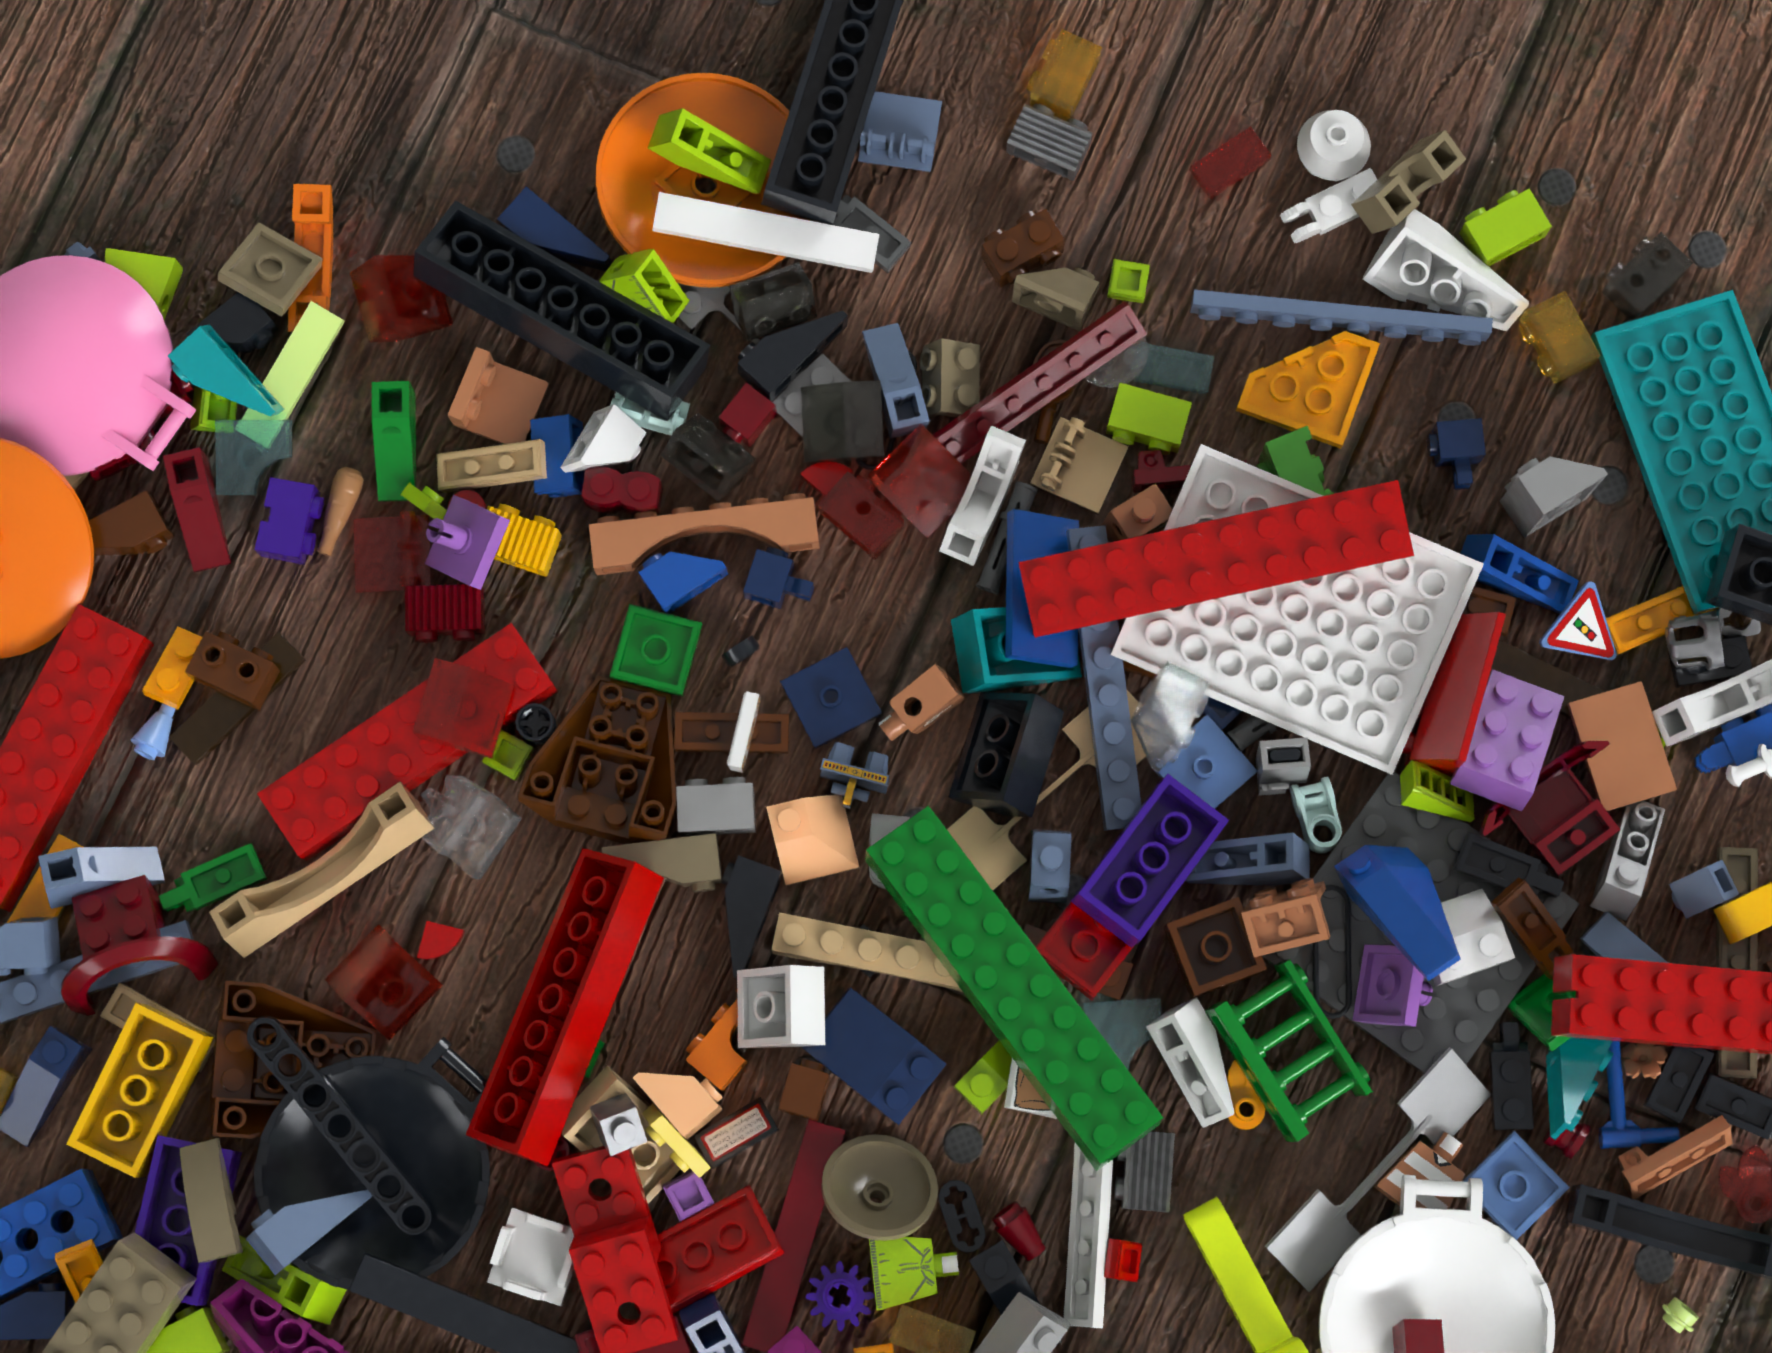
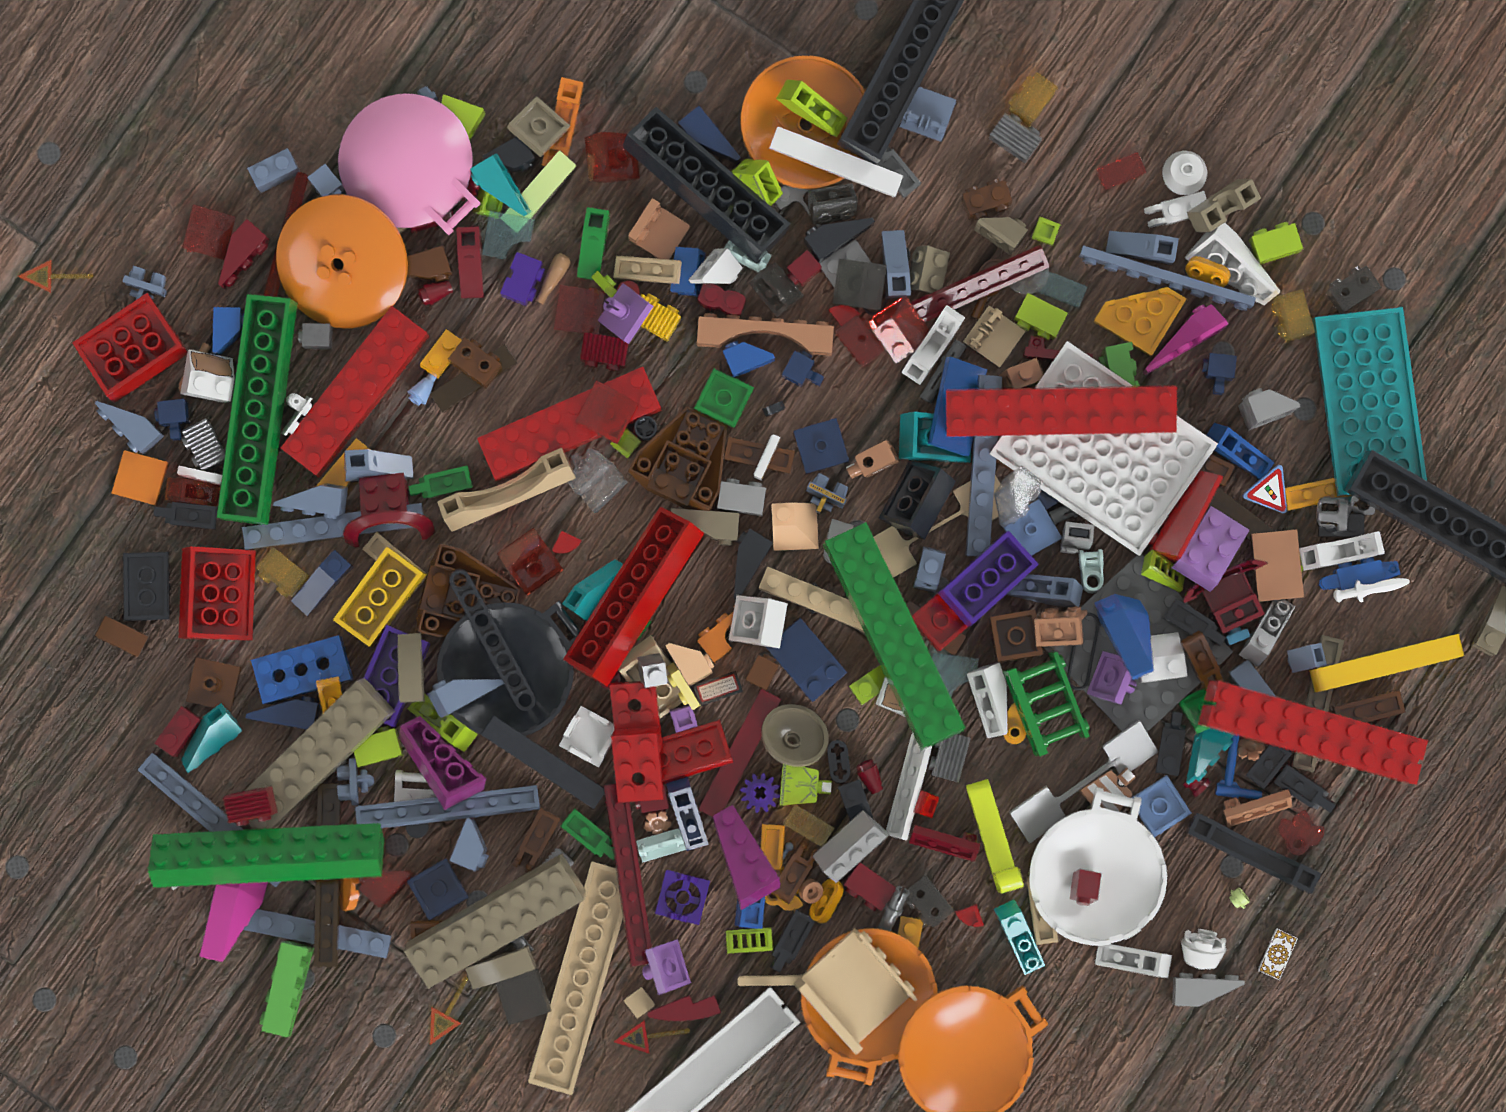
camera: 10 degrees right, 5 degrees up
(148, 570) = (434, 292): none -> dark red cone
(490, 1013) = (589, 592): none -> teal slope
(1199, 1322) = (963, 847): none -> dark red hinge
(1293, 273) = (1143, 246): none -> sand blue slope
(1405, 292) = (1208, 271): none -> light orange plate
(1411, 385) = (1198, 328): none -> dark pink wedge
(1580, 875) = (1236, 635): none -> dark azure plate

